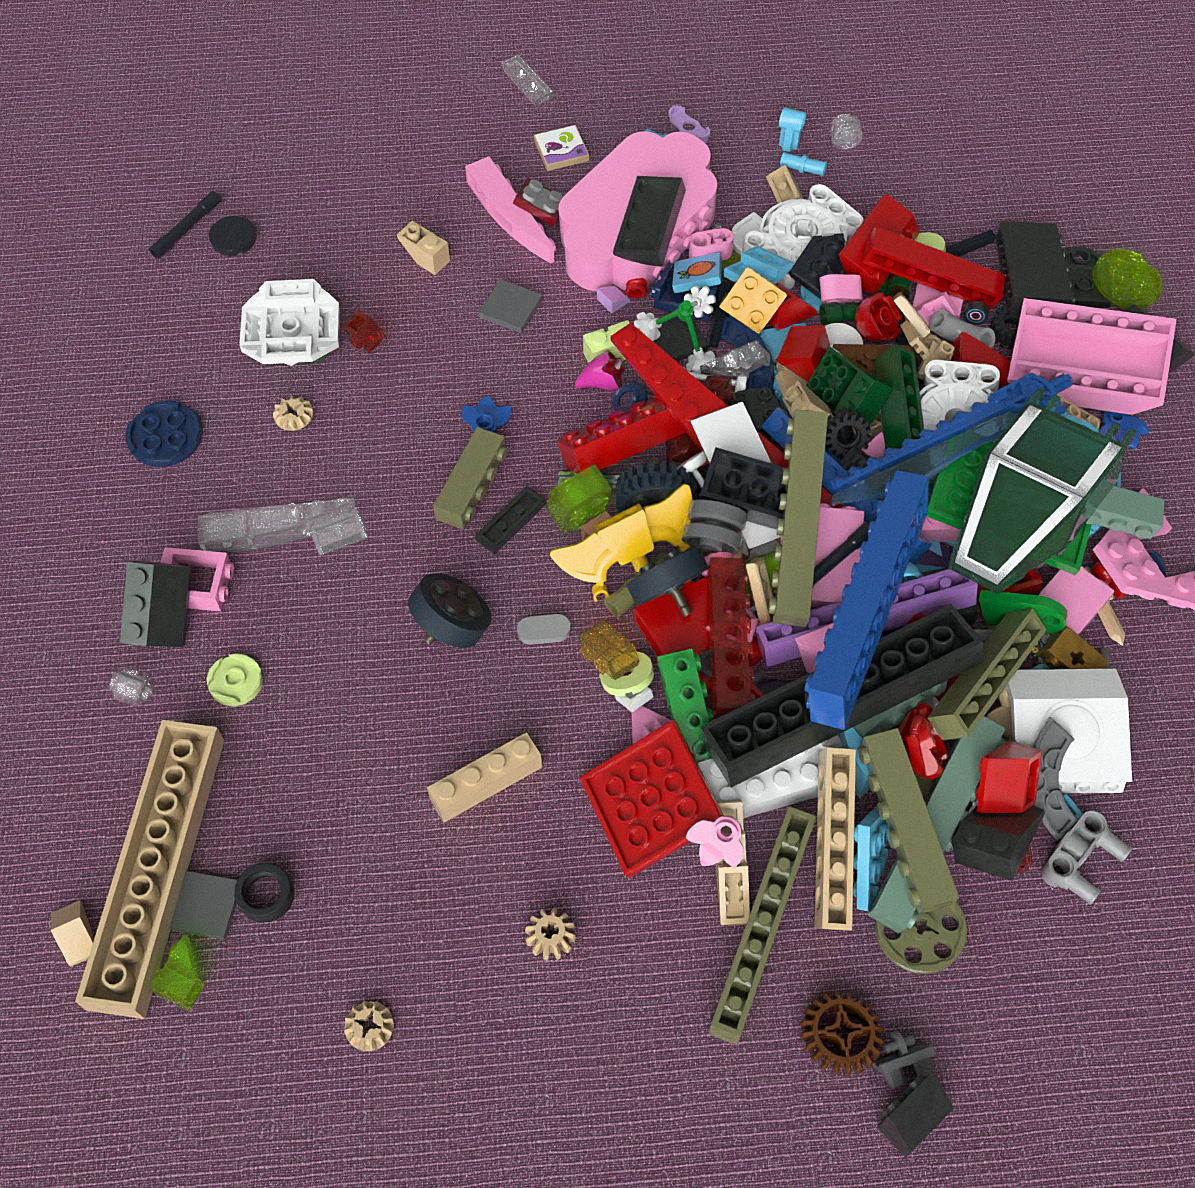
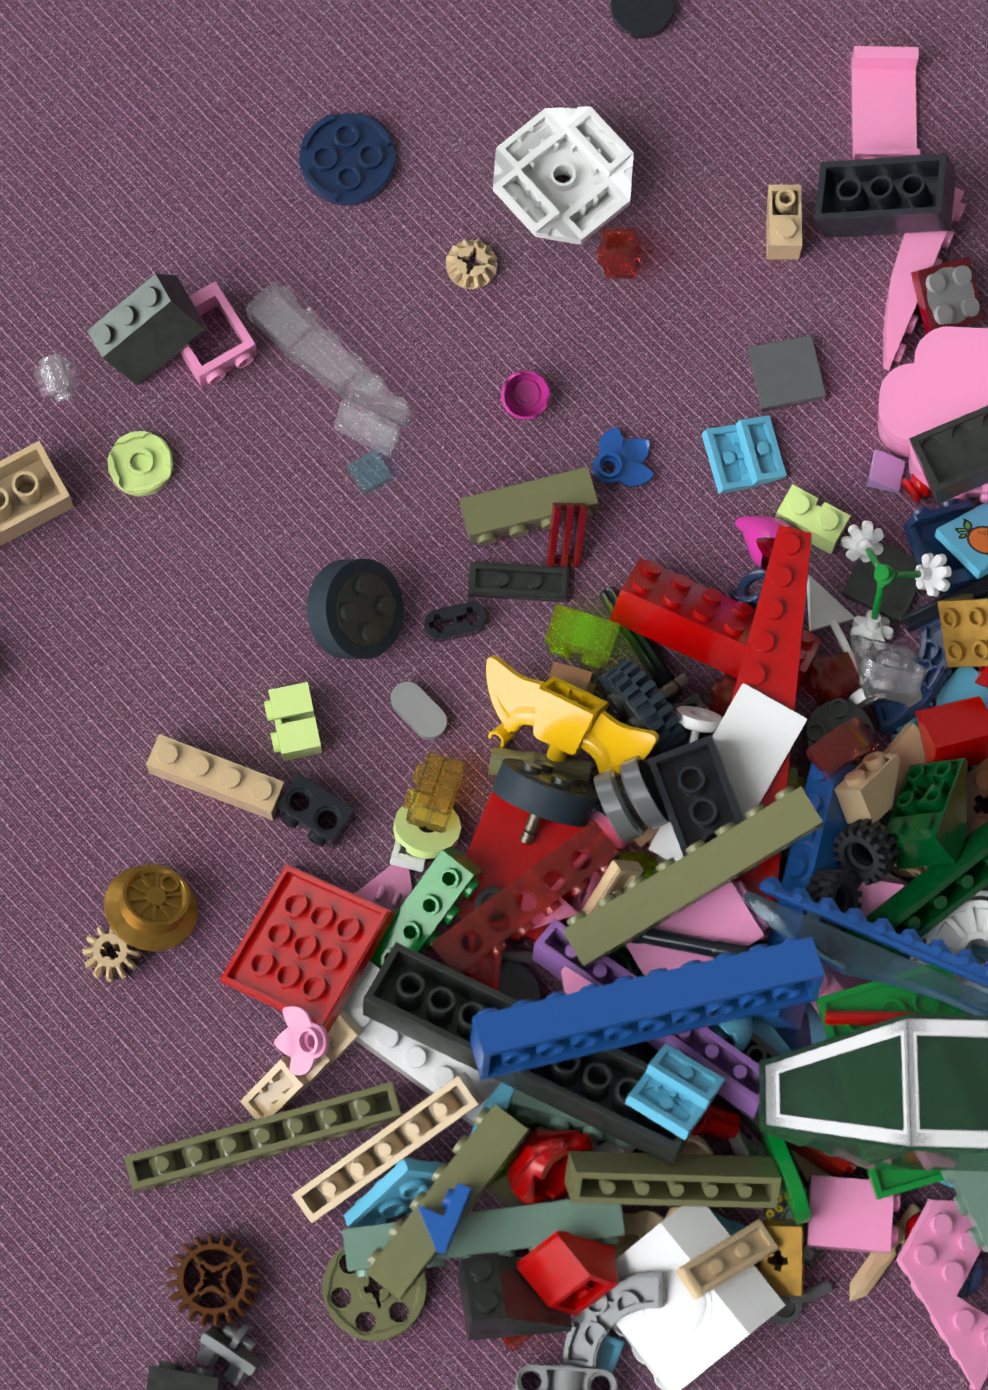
camera: 50 degrees right, 15 degrees up
(366, 553) = (369, 472): none -> clear light blue tile
(400, 435) = (525, 394): none -> dark pink hair
(402, 167) = (884, 102): none -> bright pink panel
(458, 185) = (885, 196): none -> black brick
(492, 708) = (294, 722): none -> yellowish green piece
(500, 567) = (452, 614): none -> black beam
(509, 466) = (564, 558): none -> dark red tile
(539, 356) = (744, 454): none -> medium azure slope
(539, 882) = (150, 907): none -> pearl gold wheel
(556, 726) = (320, 805): none -> black brick
(773, 402) = (841, 747): none -> clear red brick
(932, 825) = (443, 1228): none -> blue slope
(939, 618) = (675, 1091): none -> medium azure slope
(960, 492) = (860, 1018): none -> red piece
(1065, 678) = (727, 1259): none -> tan tile

